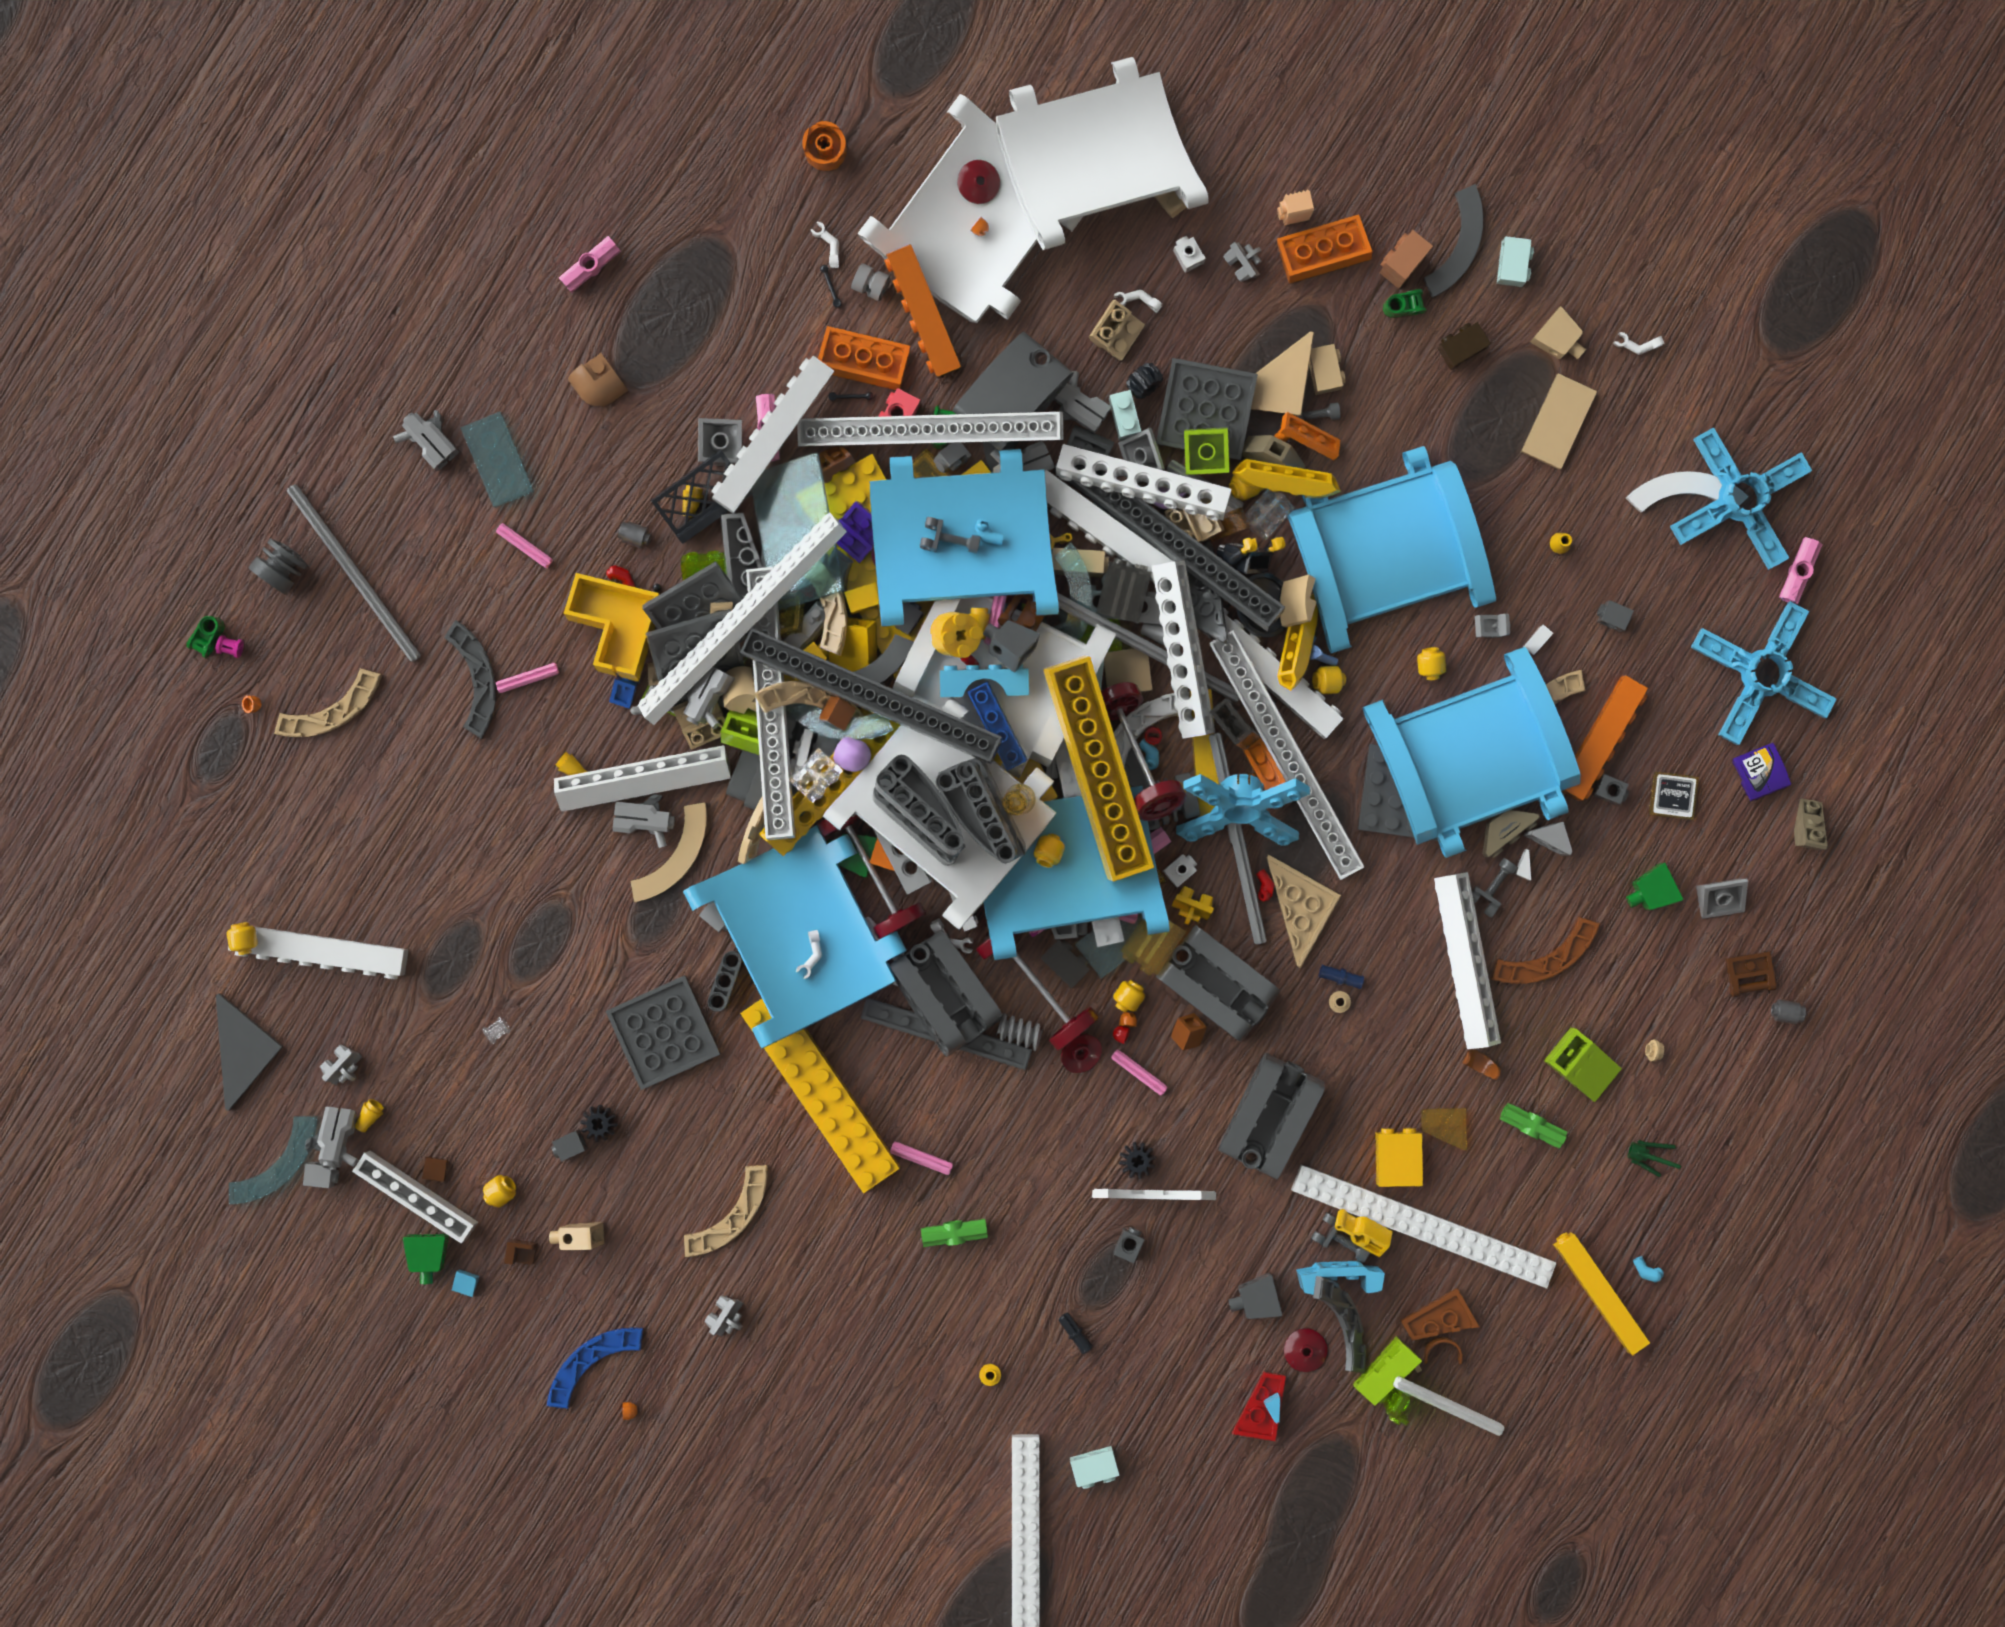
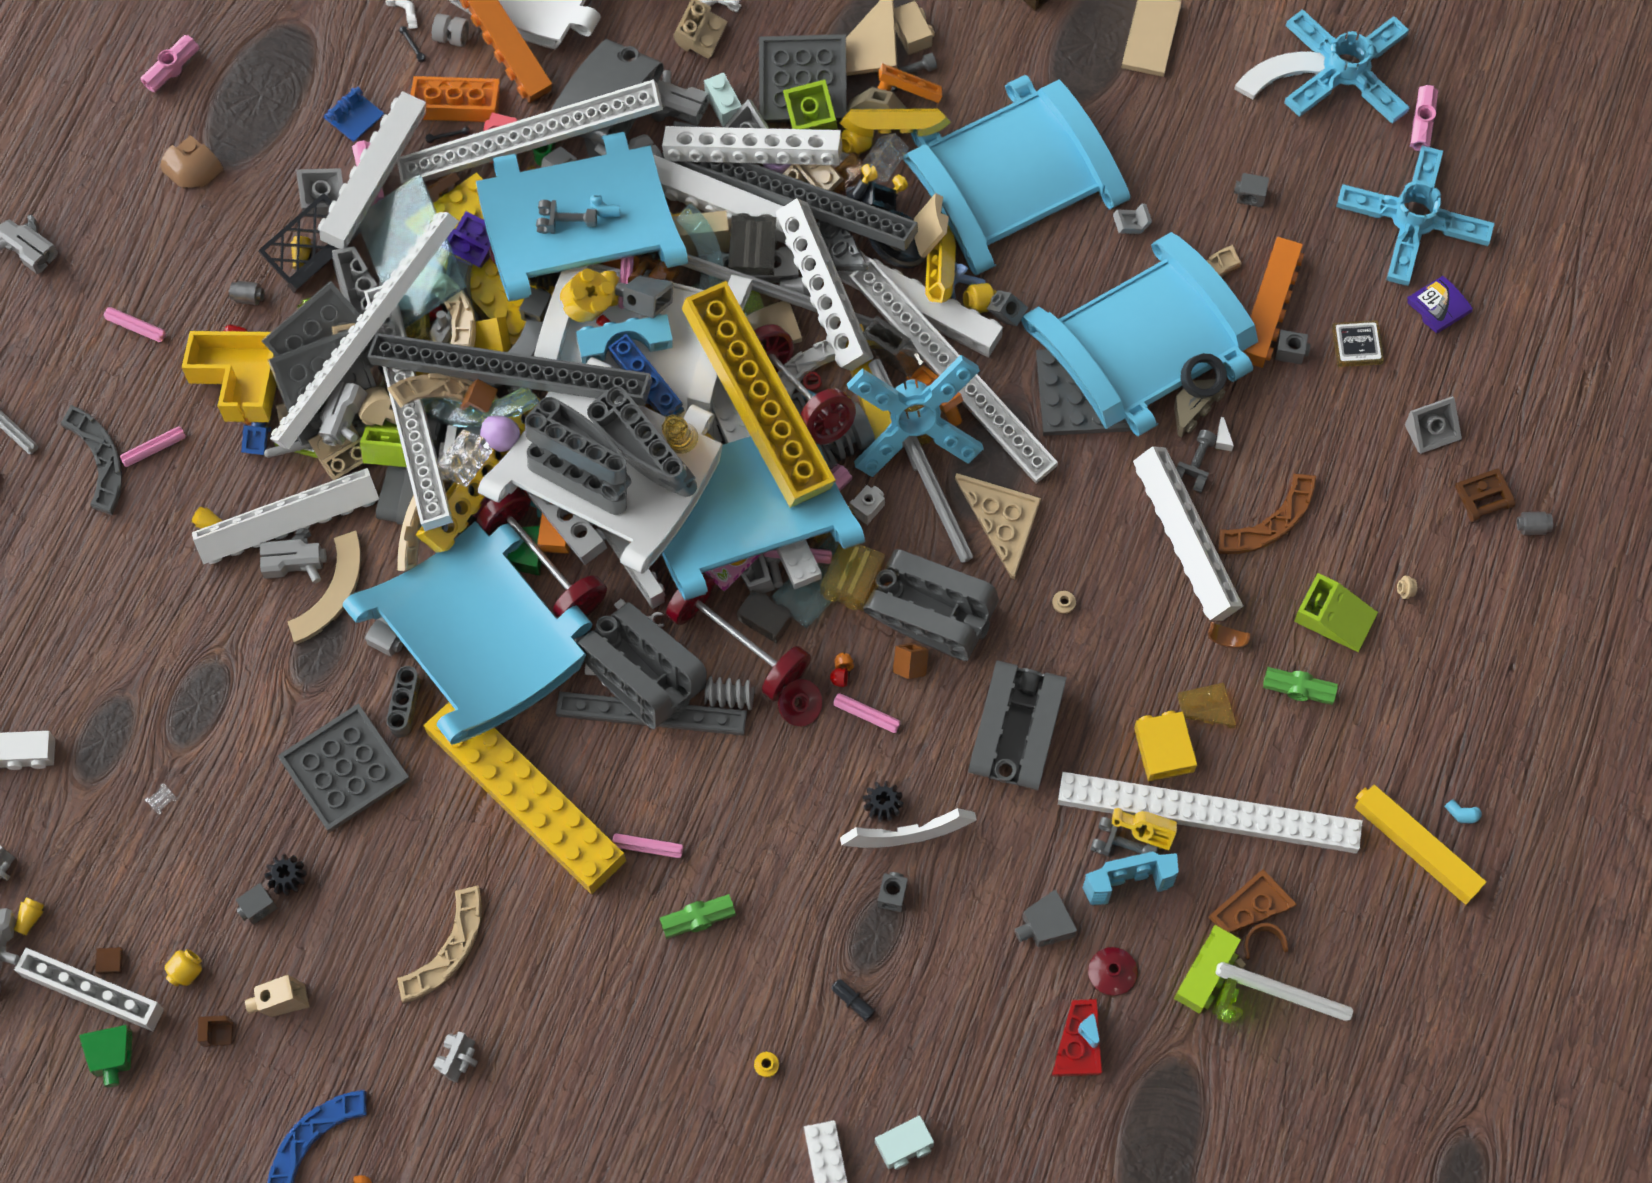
camera: 10 degrees left, 20 degrees down
(465, 1283) = (156, 1078): medium azure slope -> none
(497, 459) = (97, 252): clear light blue tile -> none
(762, 357) = (353, 114): none -> blue hinge
(817, 953) = (491, 630): white arm -> none
(862, 598) = (488, 297): yellow piece -> none
(1049, 850) = (723, 490): yellow head -> none
(1129, 996) = (839, 635): yellow head -> none
(1144, 380) = (736, 64): black gear -> none
(1190, 908) = (888, 536): yellow hips -> none
(1267, 886) = (961, 503): red arm -> none
(1341, 976) = (1059, 576): dark blue pin -> none
(1350, 1321) = (1150, 918): dark grey tile -> none
(1352, 698) = (1007, 308): none -> dark grey brick
(1431, 663) = (1080, 264): yellow head -> none
(1527, 827) = (1216, 364): none -> black tyre
(1538, 639) = (1183, 223): white piece -> none
(1552, 837) = (1242, 398): light grey slope -> none
(1557, 545) = (1181, 135): yellow cone -> none
(1638, 1153) = (1420, 691): dark green plant -> none
(1655, 889) = (1363, 431): green torso -> none
(1810, 825) = (1503, 342): dark tan slope -> none

